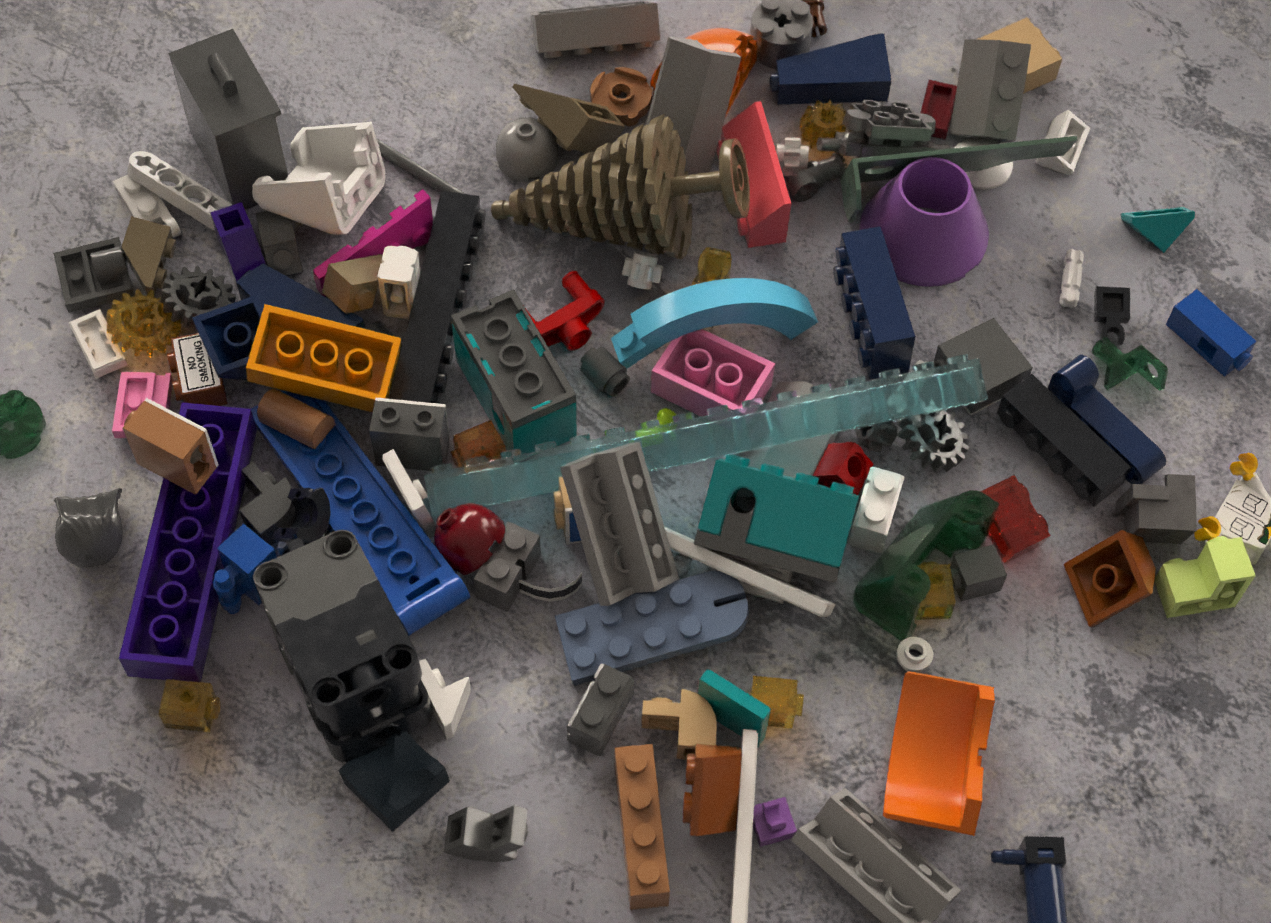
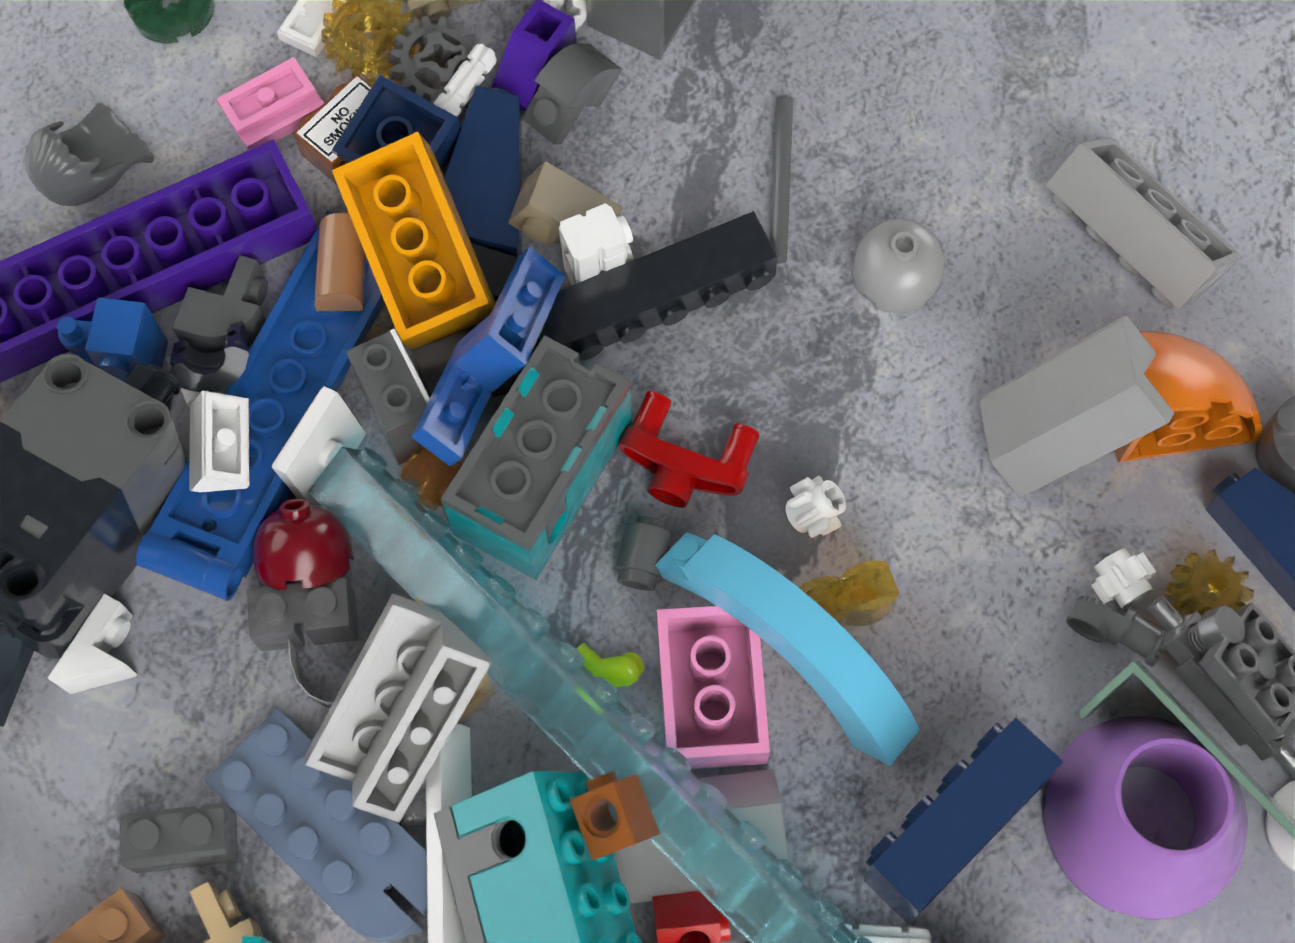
camera: 60 degrees right, 10 degrees up
(170, 445) = (182, 164): medium nougat piece -> none
(225, 281) = (466, 78): none -> white axle
(333, 179) = (673, 92): white windscreen -> none
(378, 543) = (219, 443): none -> white slope
(407, 228) = (643, 202): dark pink wing -> none
(435, 358) = (488, 357): none -> blue bracket
(574, 122) = (971, 282): dark tan slope -> none
(624, 80) = (1041, 304): medium nougat plate -> none
(631, 192) = (908, 436): dark tan plant -> none
(769, 196) = (1049, 553): coral slope -> none
(779, 444) = (599, 829): none -> dark orange brick

